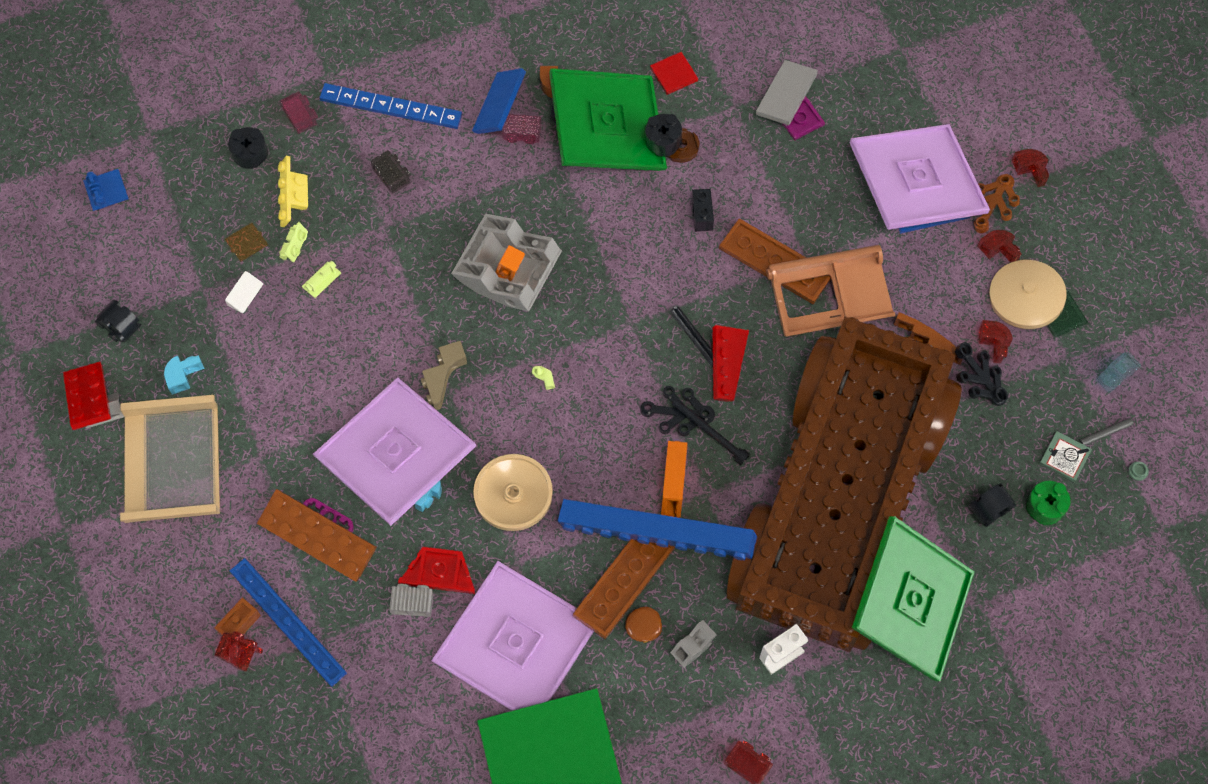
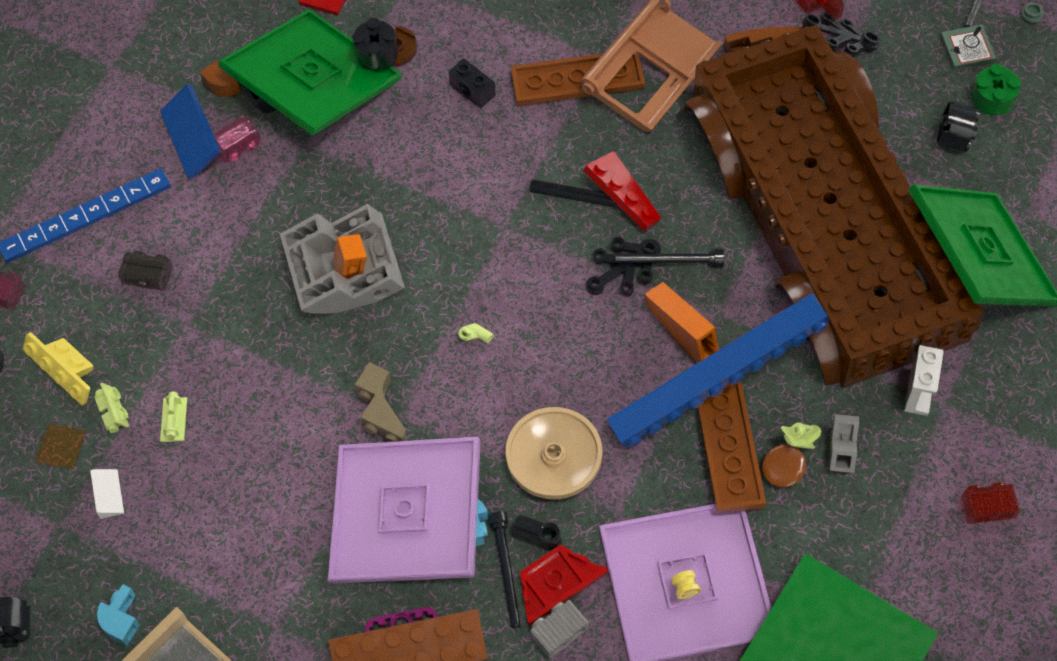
camera: 40 degrees left, 5 degrees down
(440, 507) = (499, 522): none -> black piece
(456, 532) = (535, 532): none -> black piece
(507, 642) = (685, 584): none -> light yellow wheel
(671, 615) = (801, 435): none -> yellowish green hinge

